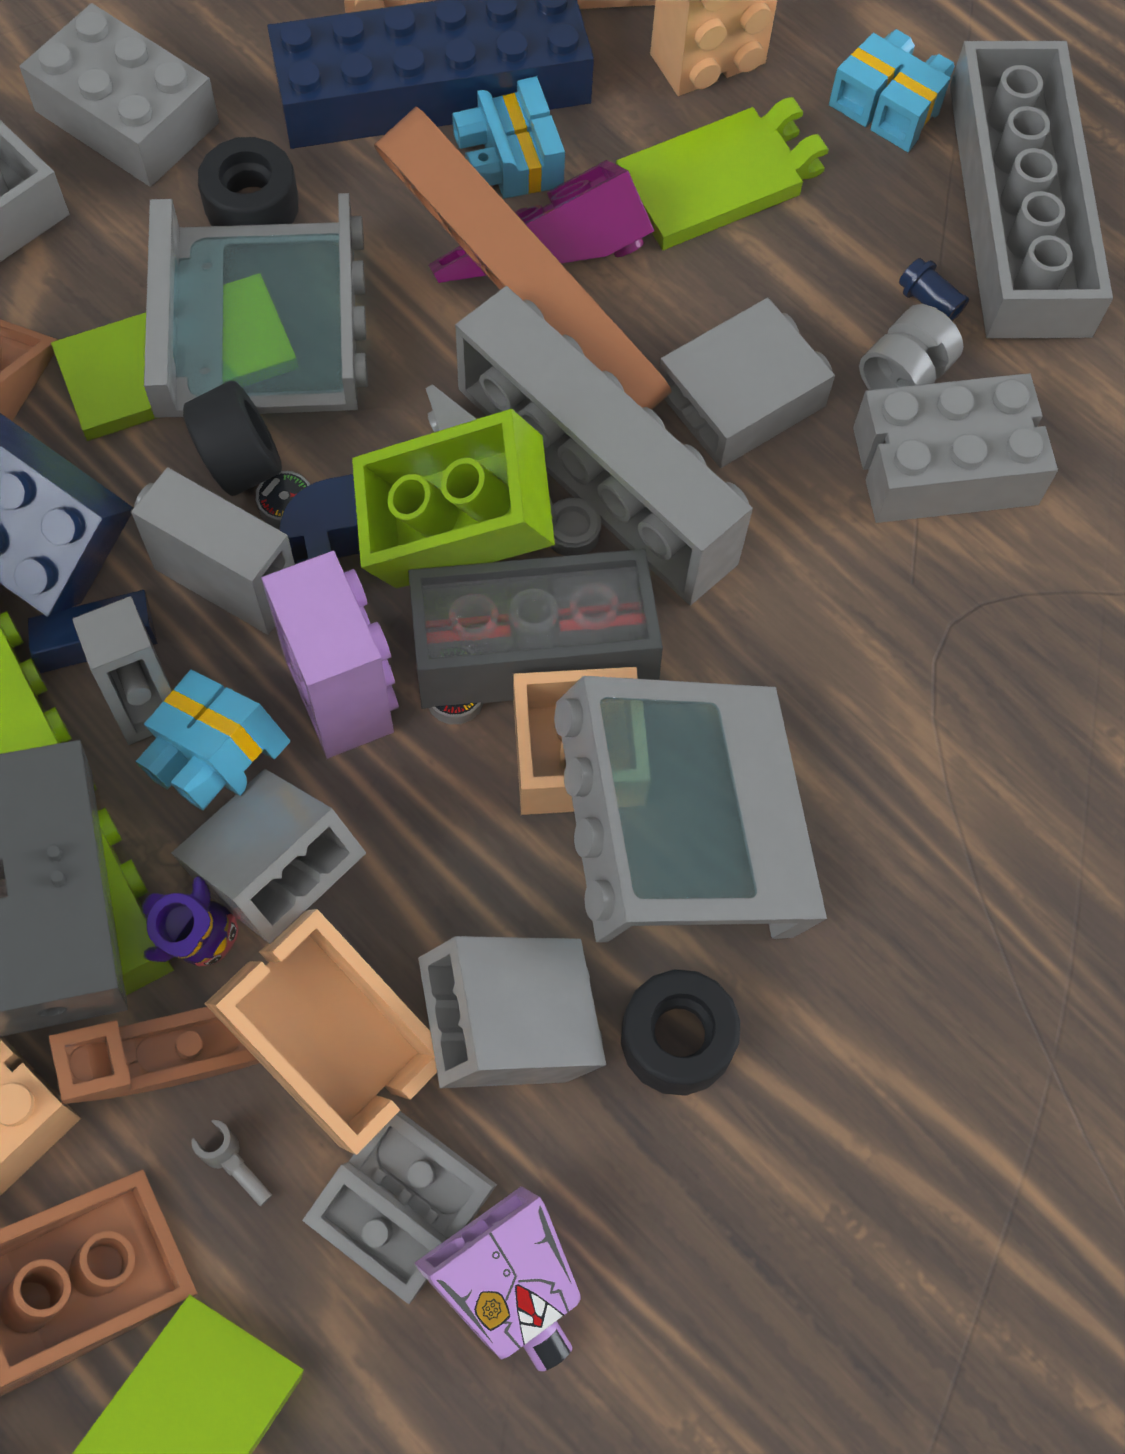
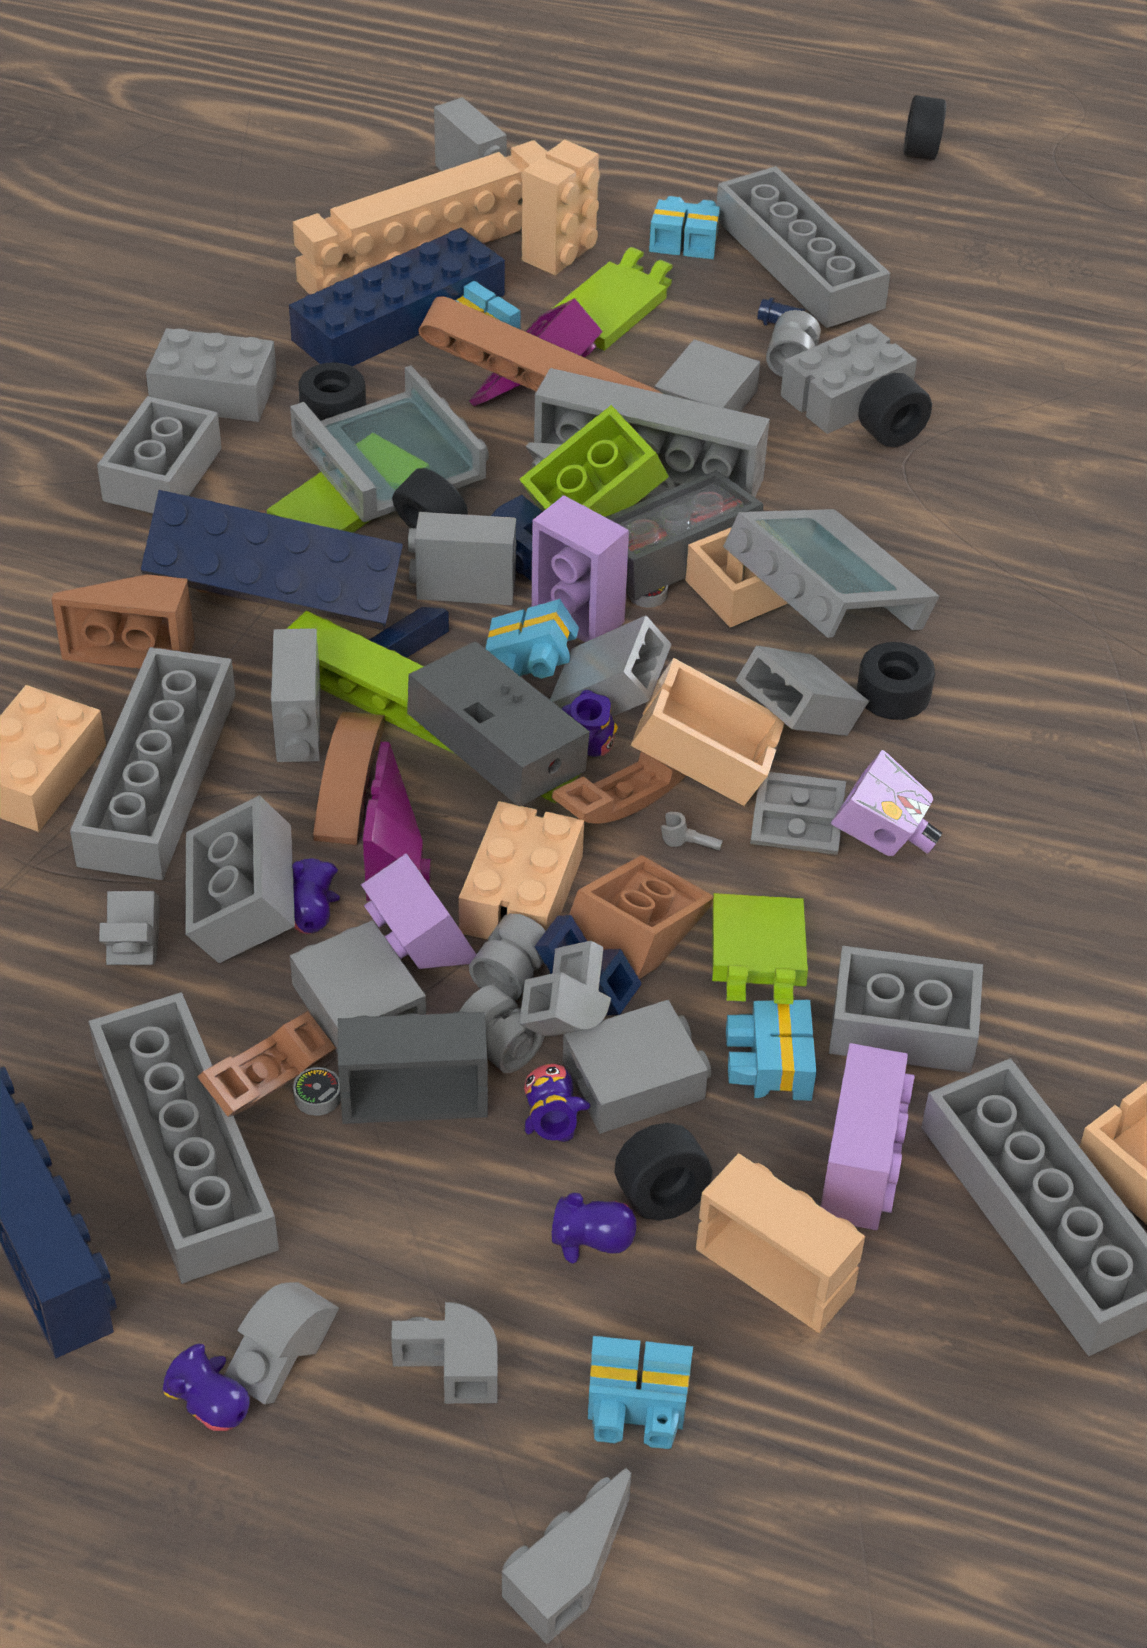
camera: 25 degrees left, 20 degrees down
(123, 665) = (451, 618): light grey slope -> none
(977, 540) = (895, 409): none -> black tyre

